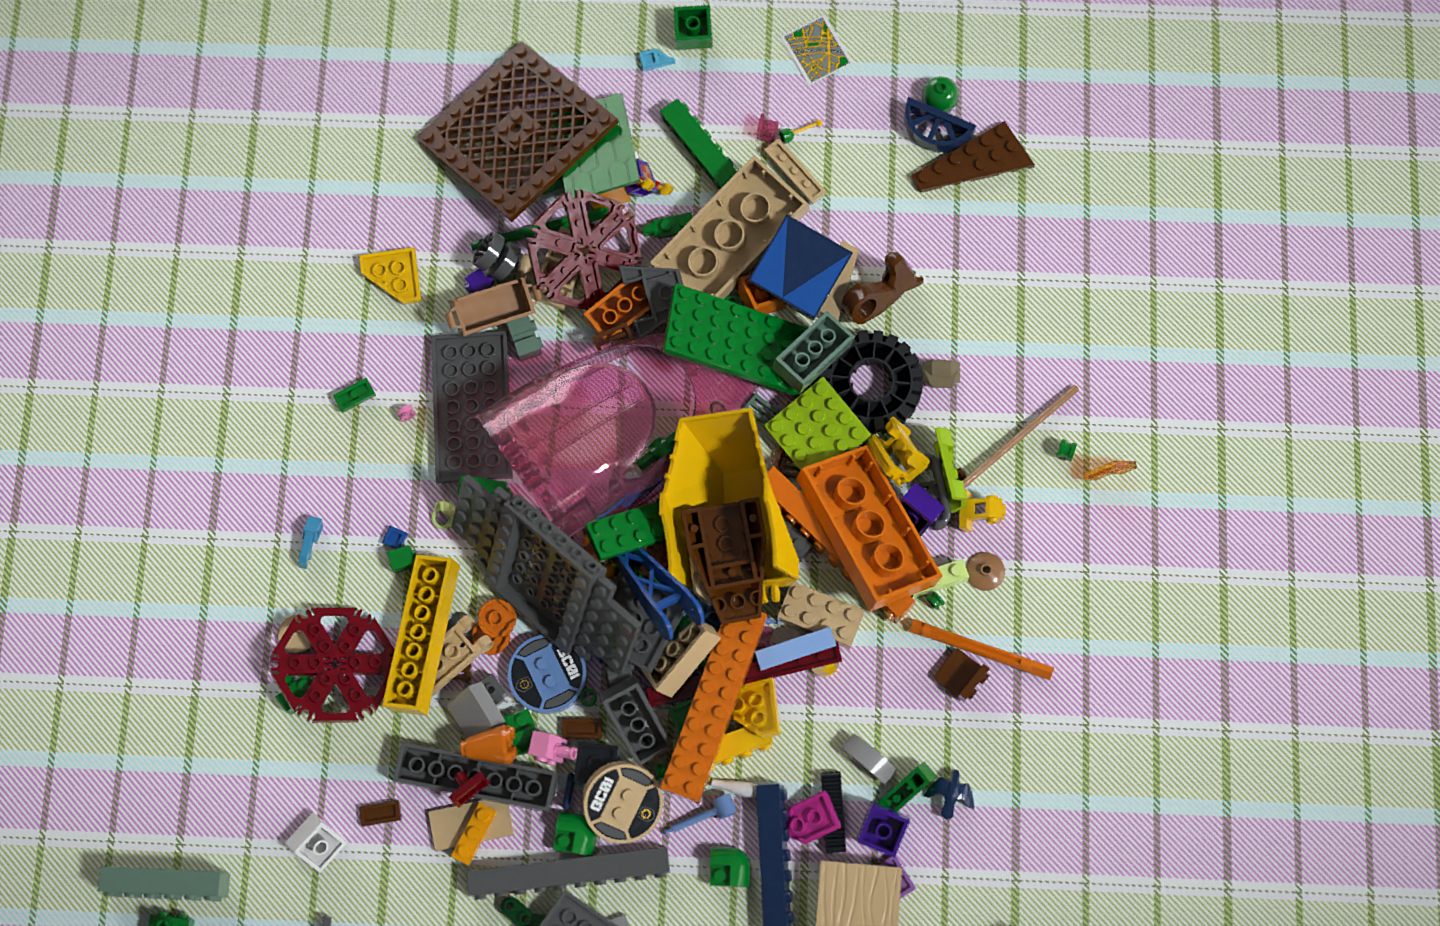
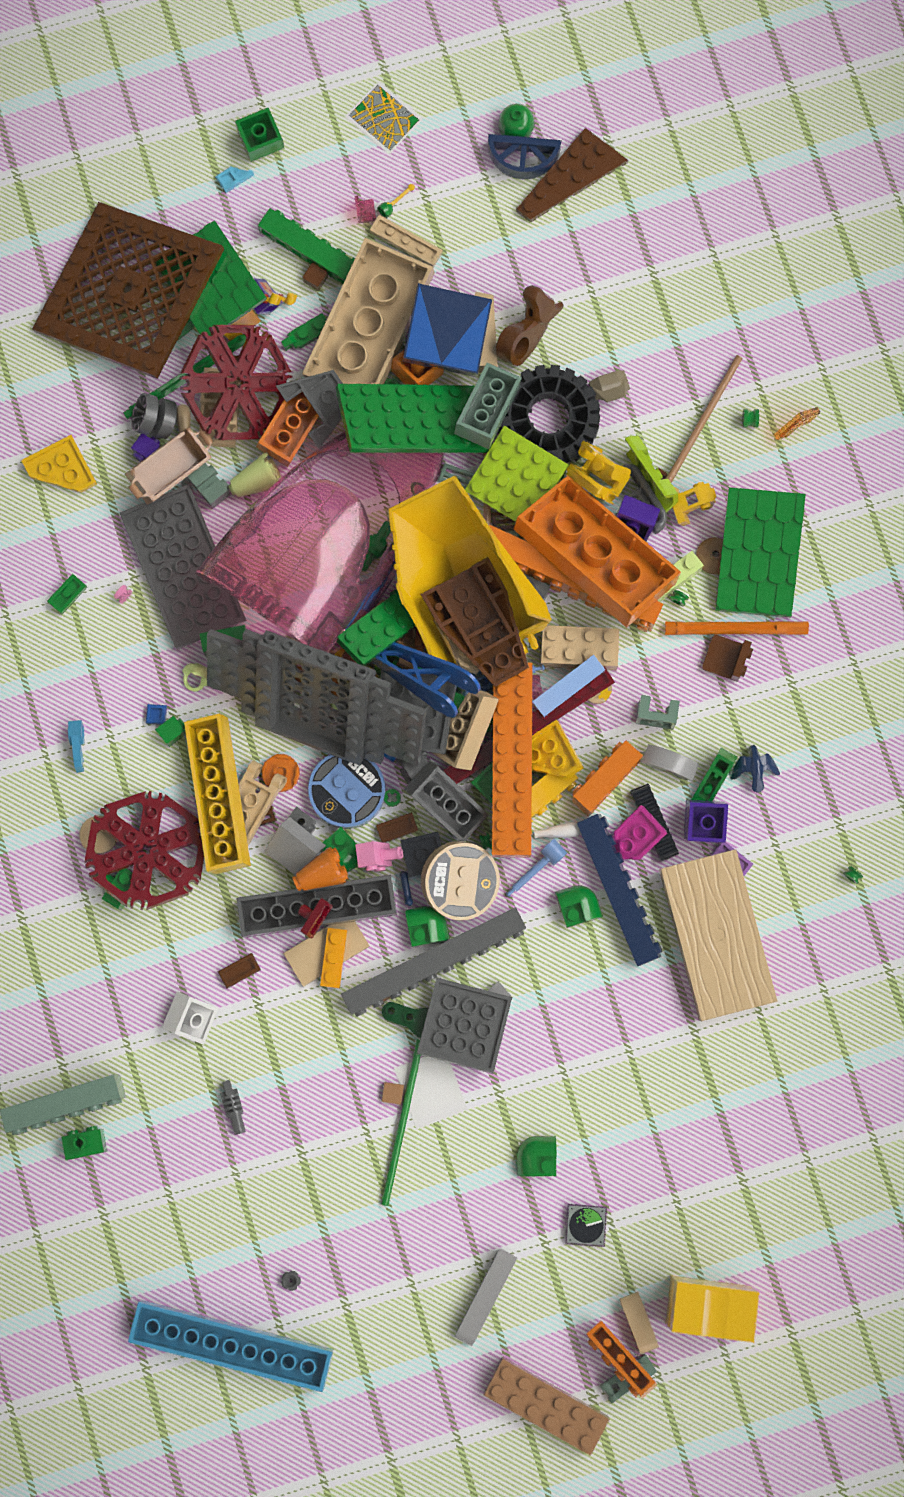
camera: 20 degrees left, 5 degrees up
(497, 618) = (281, 754): orange tile -> none
(570, 345) = (256, 477): none -> yellowish green cone
(598, 345) = (283, 467): reddish brown tile -> none
(697, 176) = (315, 276): none -> reddish brown piece
(800, 752) = (609, 775): none -> orange brick
(870, 710) = (656, 718): none -> sand green panel
(1029, 583) = (760, 552): none -> green piece

